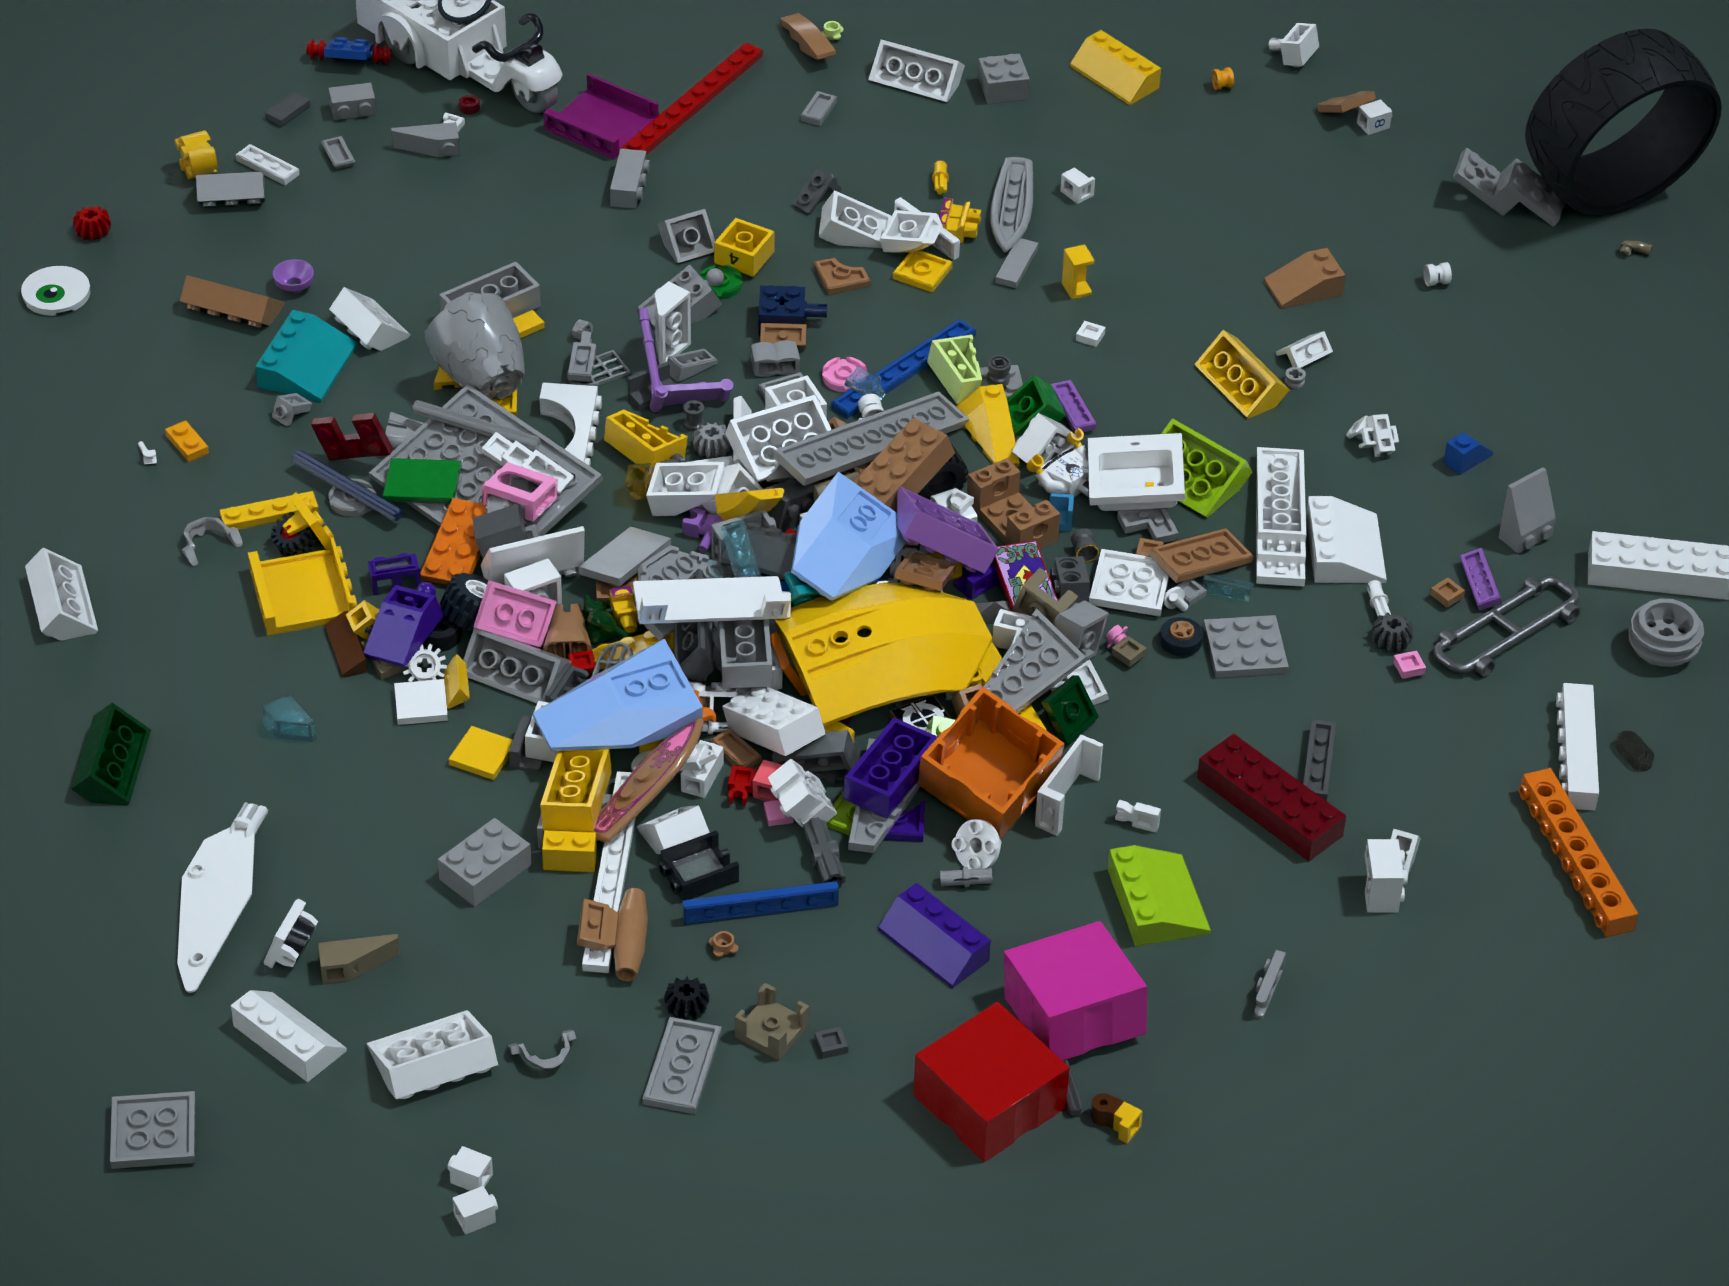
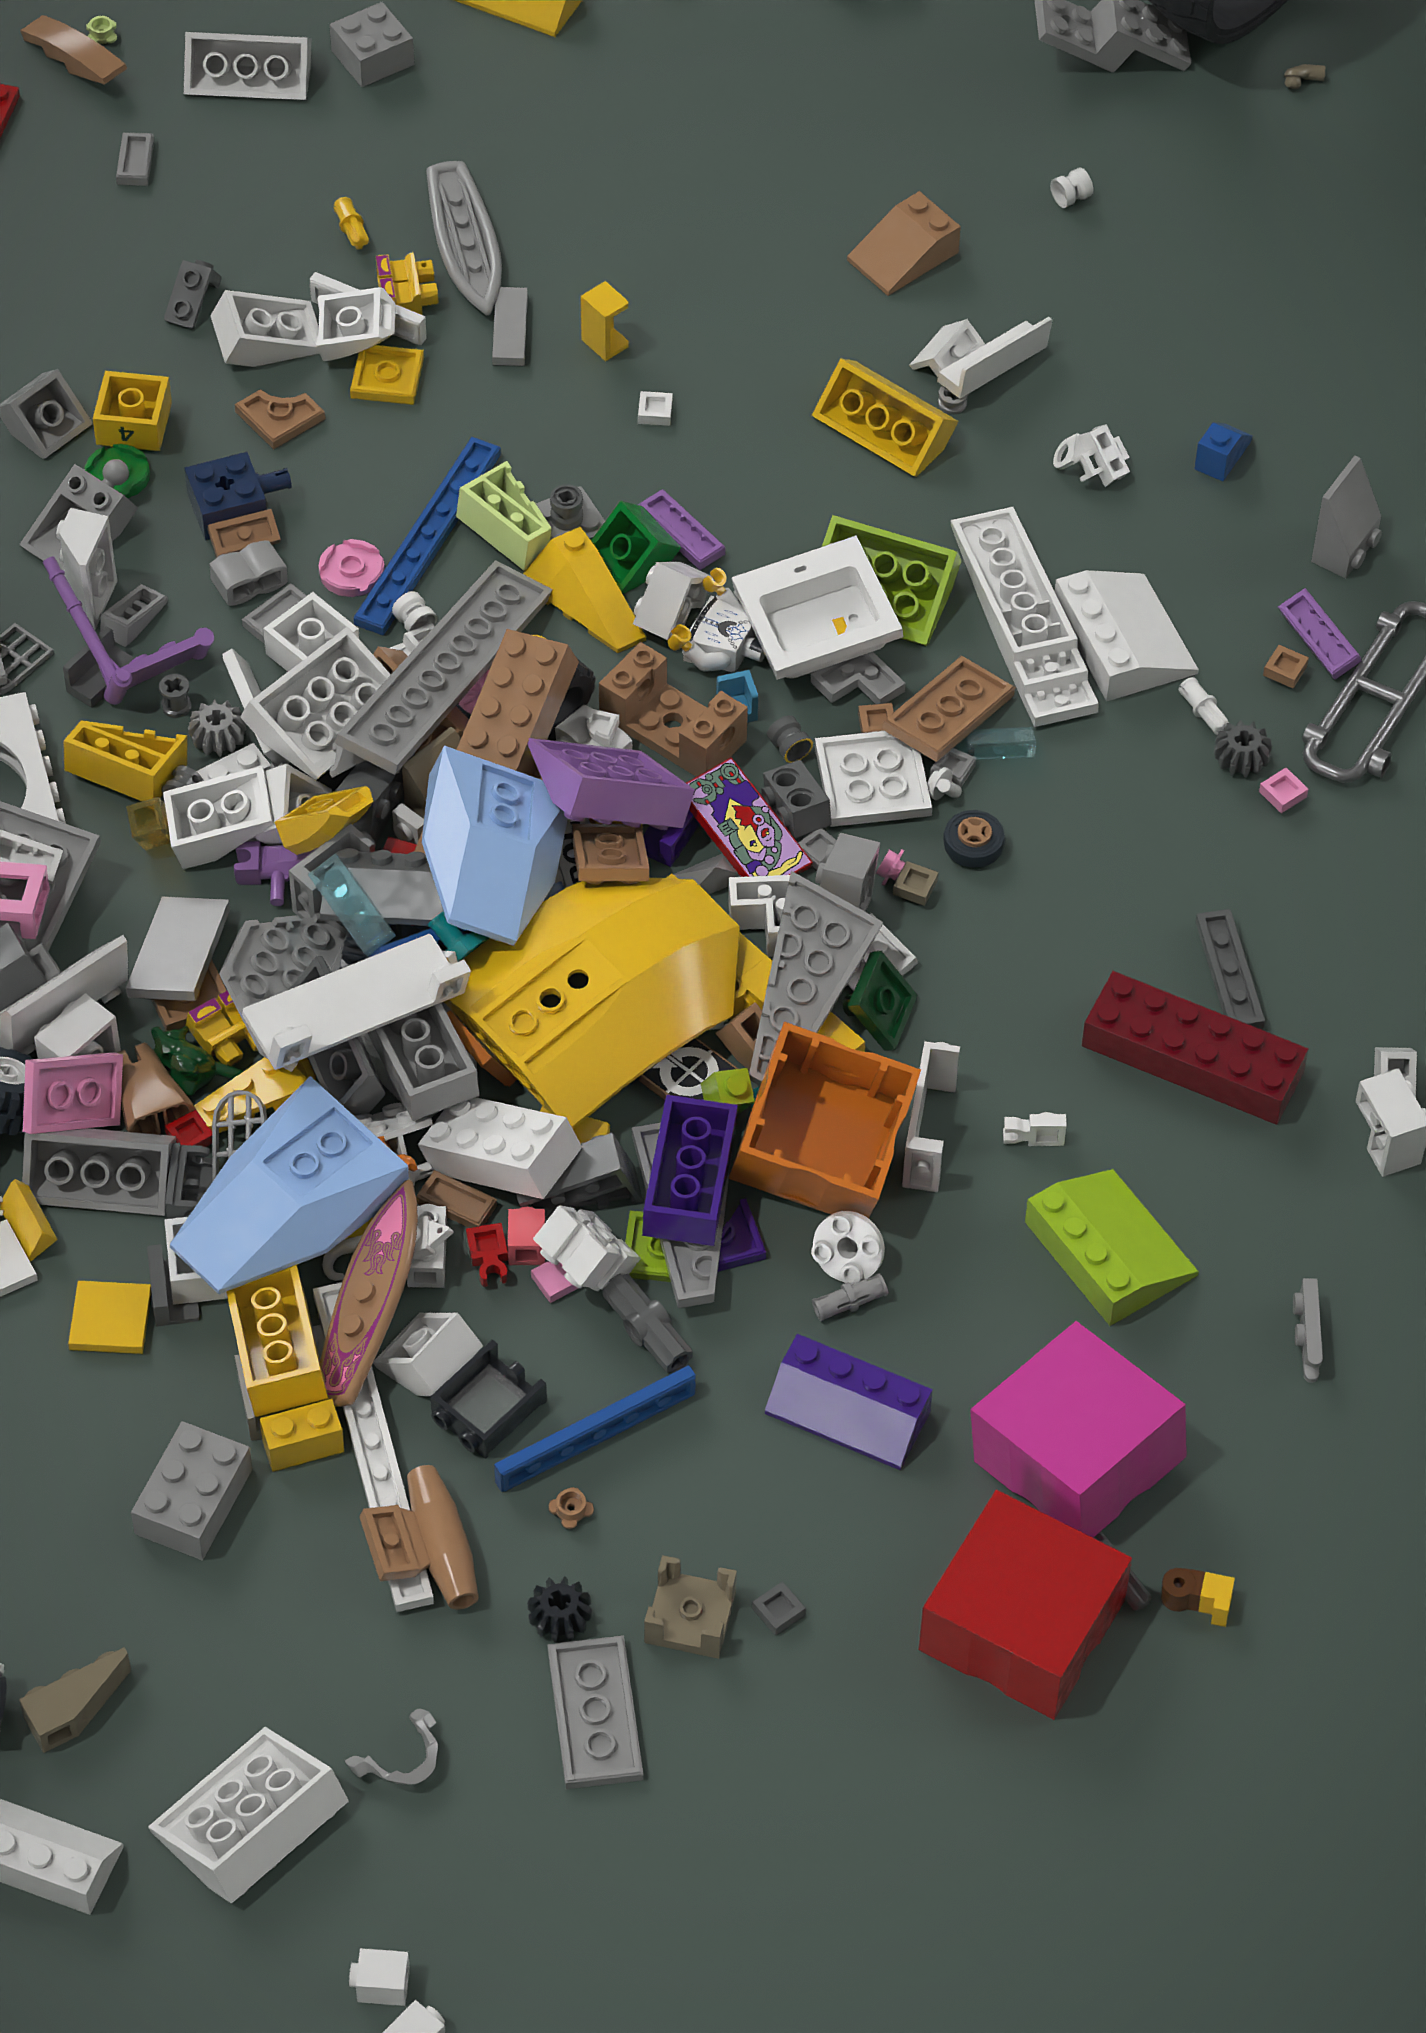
camera: 20 degrees left, 10 degrees up
(865, 383) = (391, 577): clear light blue slope -> none
(1034, 597) = (775, 855): dark tan panel -> none
(1077, 185) = (541, 184): white brick -> none
(1245, 646) = (1061, 827): light grey plate -> none
(1335, 360) = (995, 357): none -> white panel

